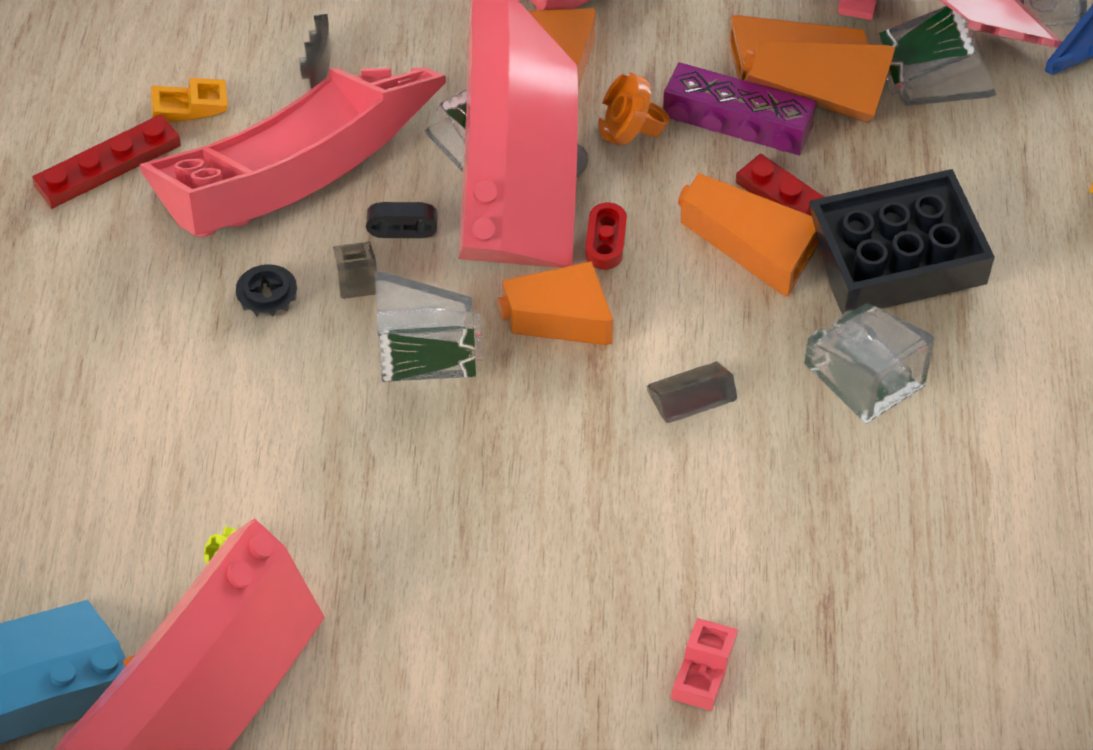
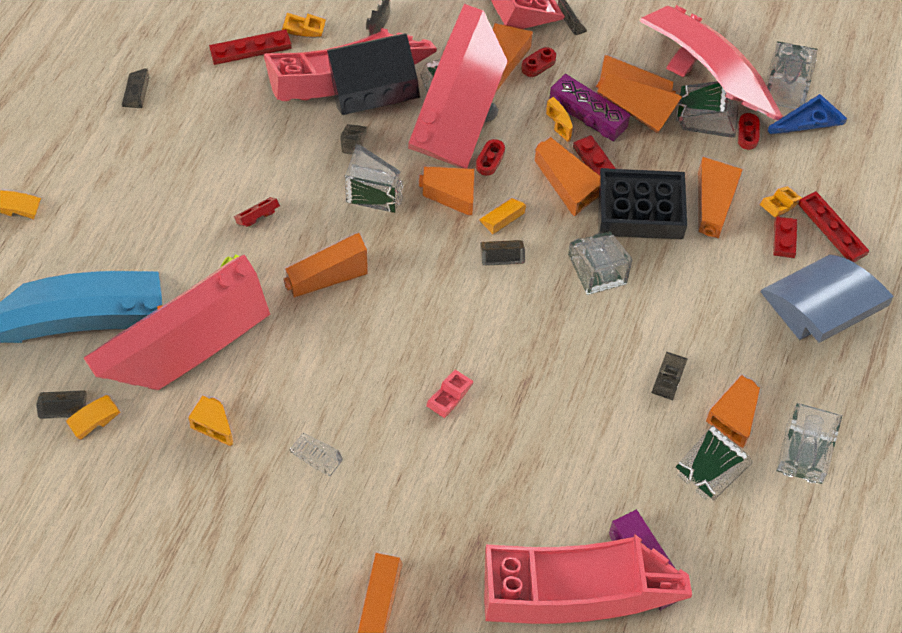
camera: 15 degrees right, 5 degrees up
(239, 433) = (264, 208): none -> red plate
(278, 279) = (298, 133): black gear -> none
(352, 147) = (373, 74): none -> black slope
(401, 220) = (387, 119): black beam -> none
(402, 501) = (328, 267): none -> orange slope
(625, 53) = (542, 60): none -> red plate
(630, 111) = (530, 94): orange tile -> none
(667, 327) = (503, 215): none -> light orange slope
(707, 145) = (563, 124): none -> light orange slope
(1010, 195) = (715, 194): none -> orange slope
(1016, 78) = (748, 135): none -> red plate
(1067, 520) = (669, 375): none -> clear smoke slope

